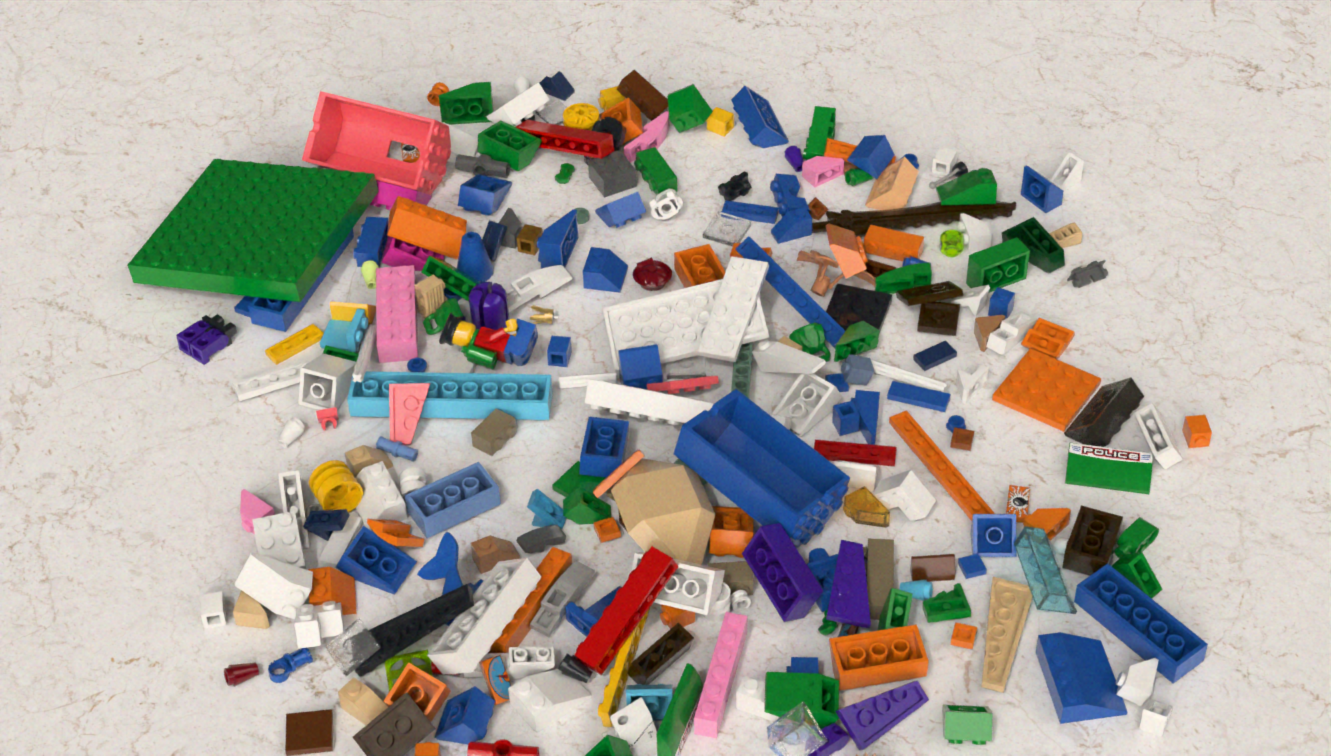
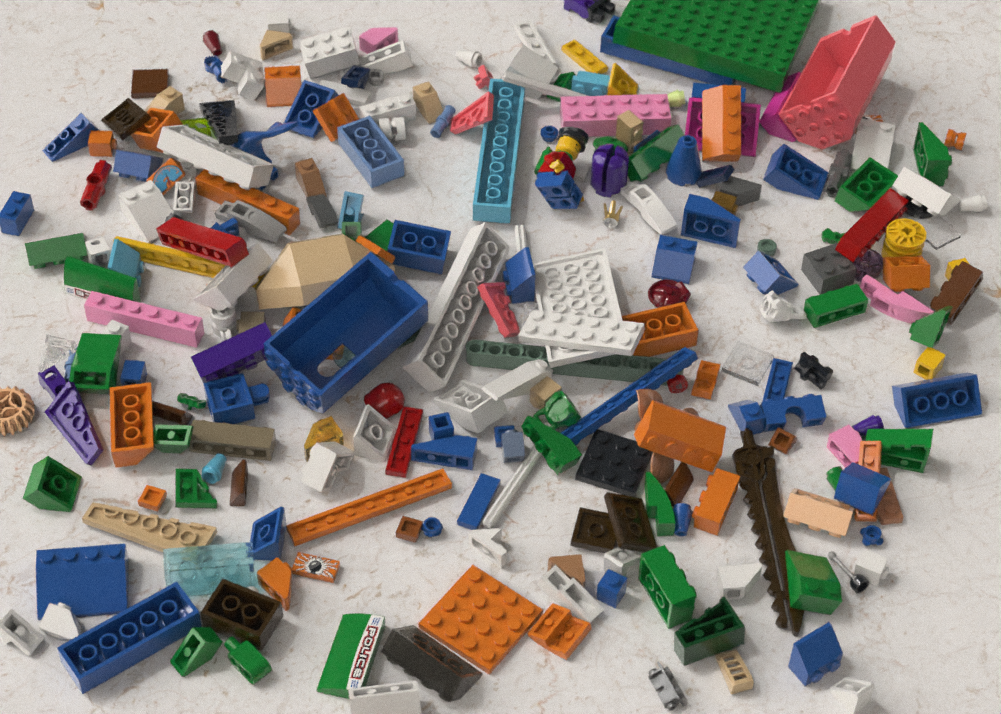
camera: 90 degrees right, 5 degrees up
(275, 584) = (278, 46): white slope -> none
(335, 486) = (389, 78): yellow wheel -> none
(352, 647) = (221, 98): clear tile -> none
(494, 432) = (455, 180): dark tan brick -> none
(557, 86) = (981, 232): dark blue slope -> none
(559, 351) = (559, 225): blue brick -> none
(615, 127) = (878, 257): black plate -> none
(660, 655) = (169, 278): dark brown brick -> none
(849, 588) = (202, 399): dark purple wing -> none
(935, 355) = (539, 523): dark blue tile -> none
(951, 243) = (719, 555): clear neon green head -> none
(972, 566) = (239, 518): blue tile -> none

